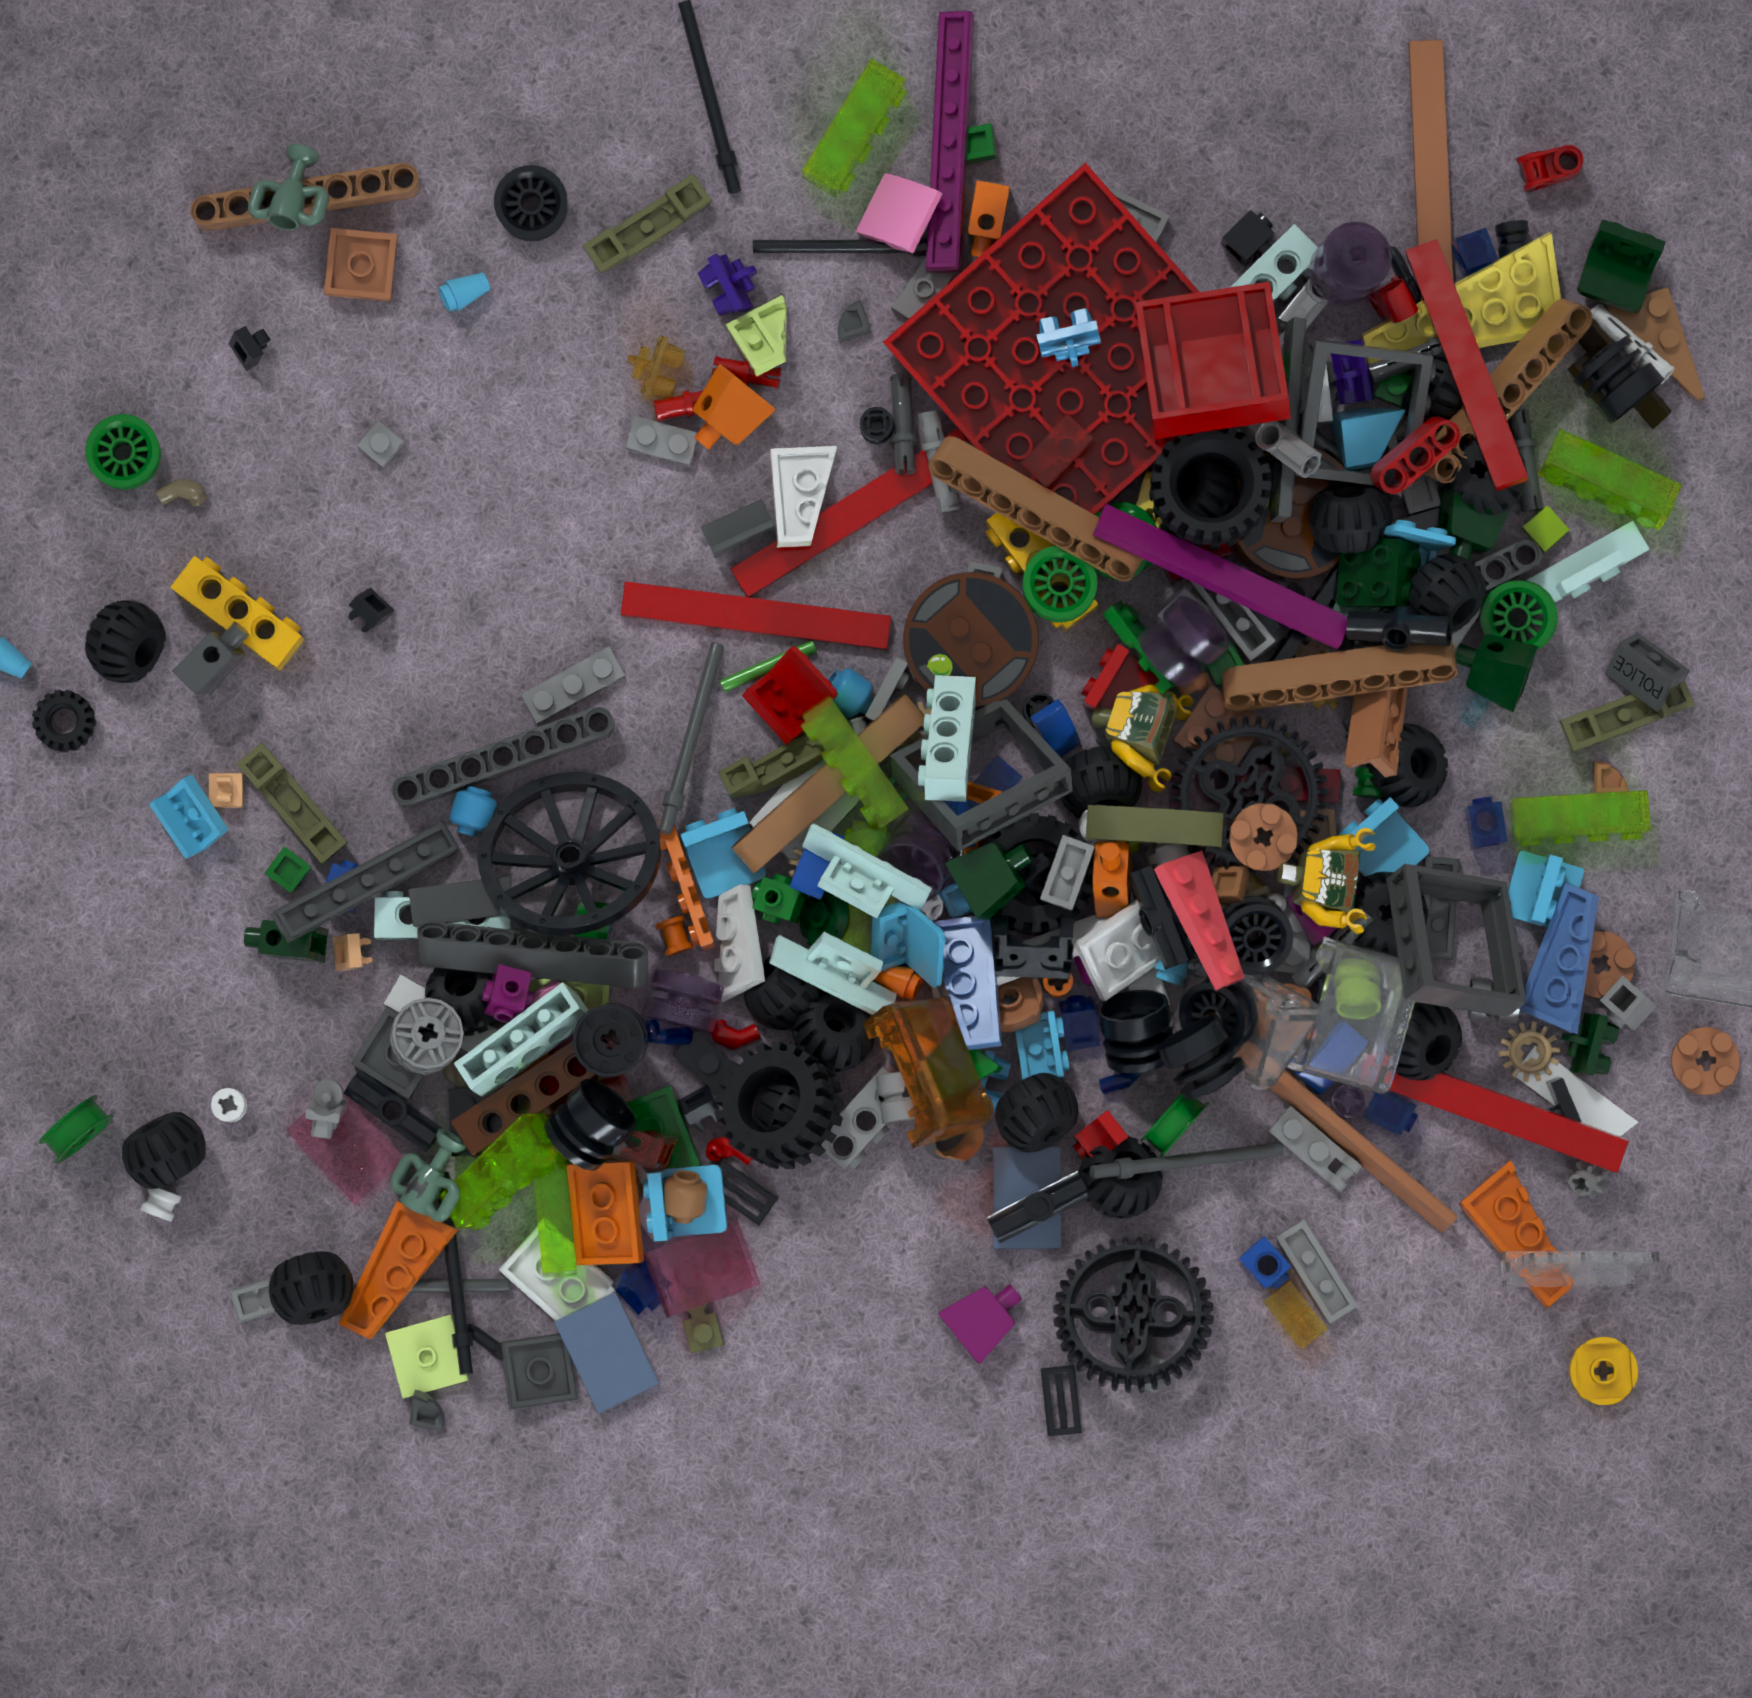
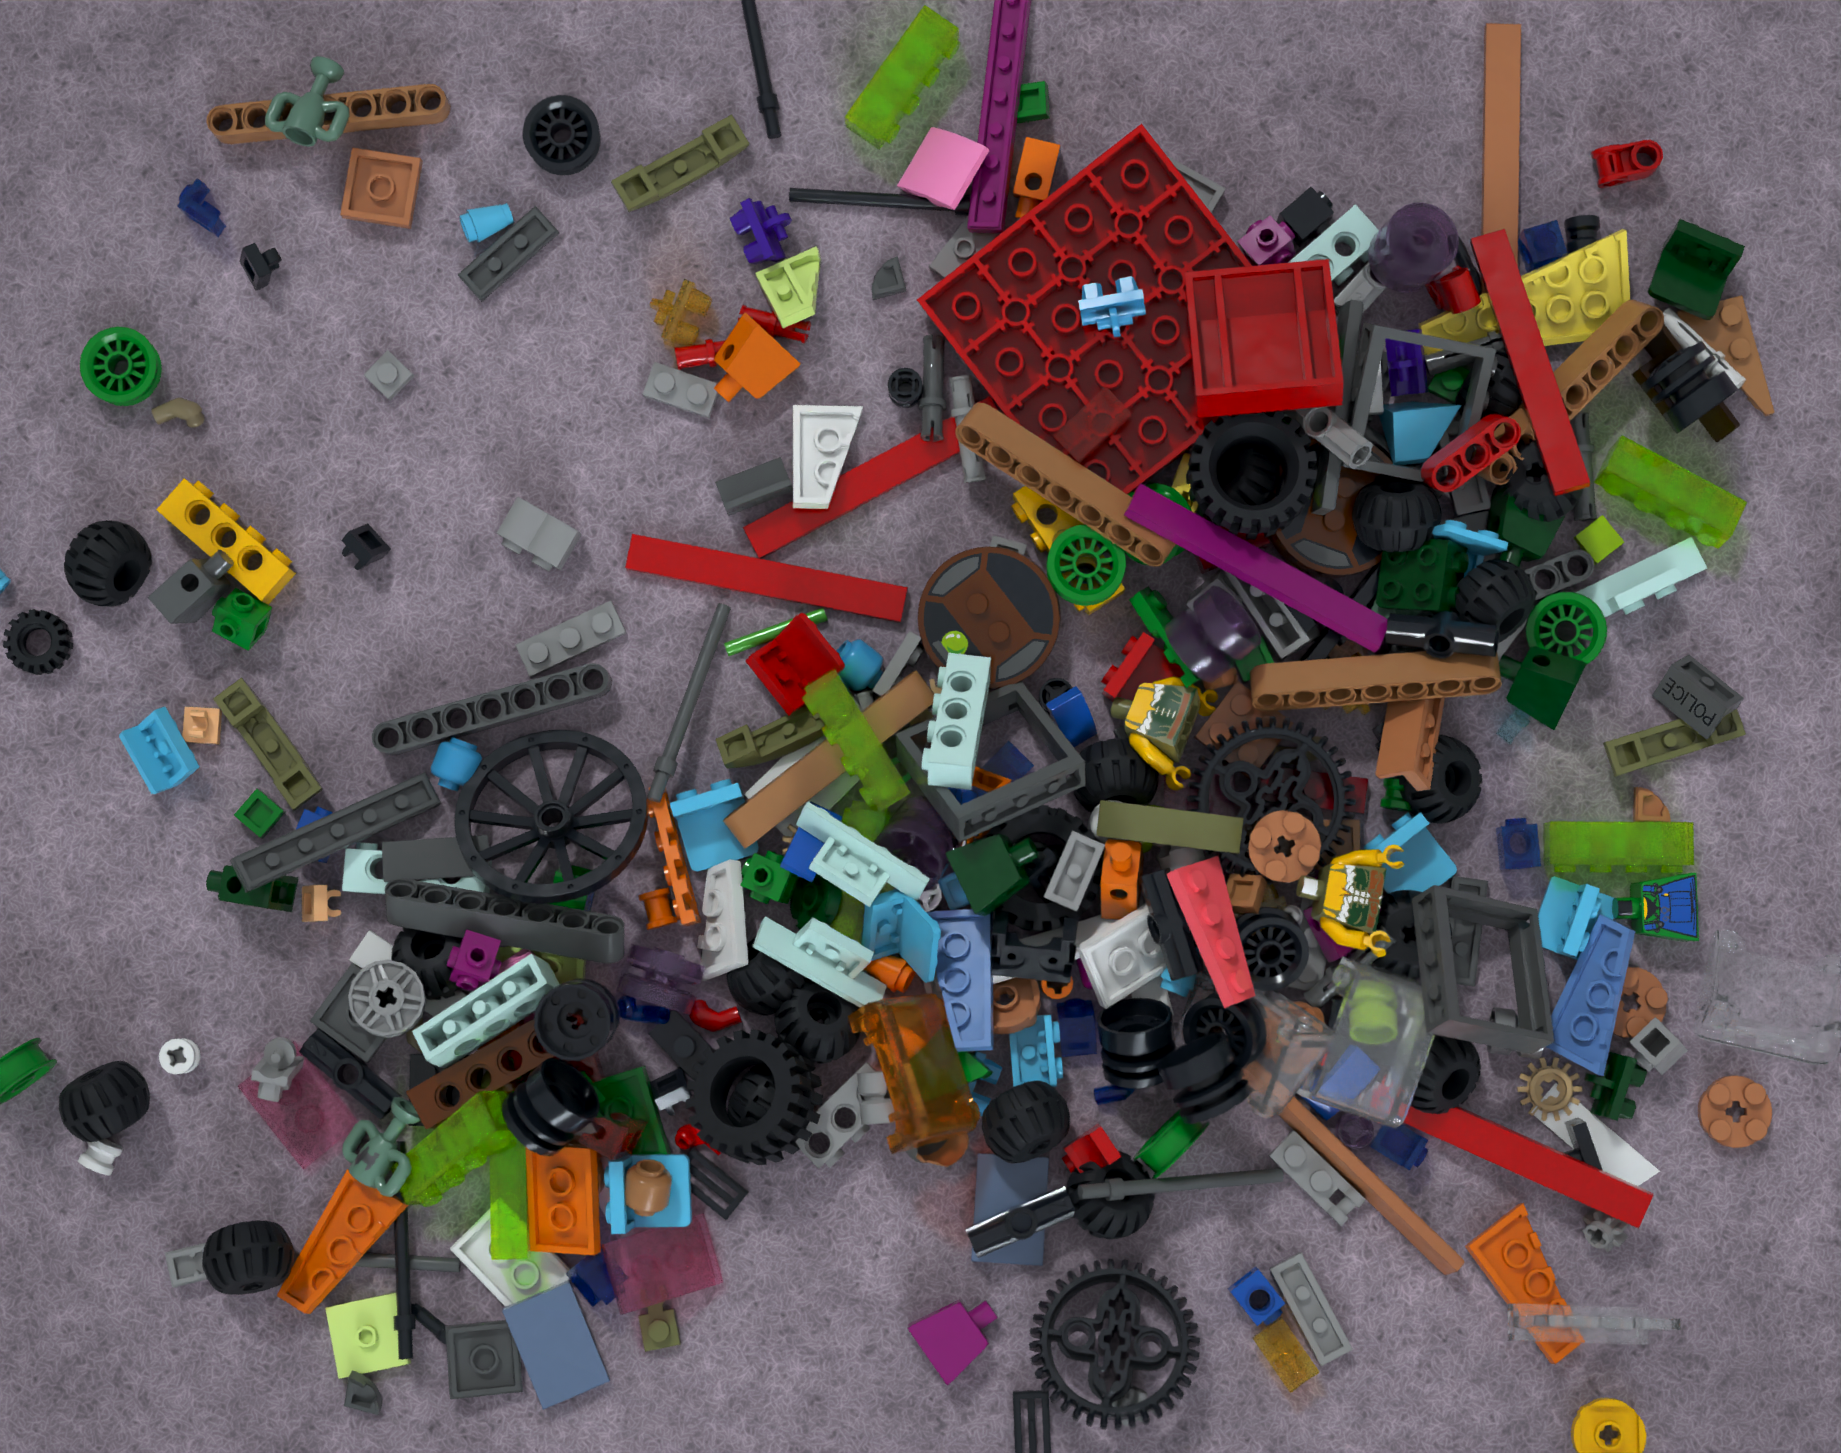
camera: 10 degrees right, 0 degrees up
(192, 301) = (203, 214): none -> clear blue bracket
(257, 686) = (241, 618): none -> green brick
(487, 320) = (508, 253): none -> dark grey tile
(535, 587) = (538, 534): none -> light grey brick
(1213, 267) = (1268, 243): none -> magenta brick
(1624, 873) = (1662, 907): none -> torso

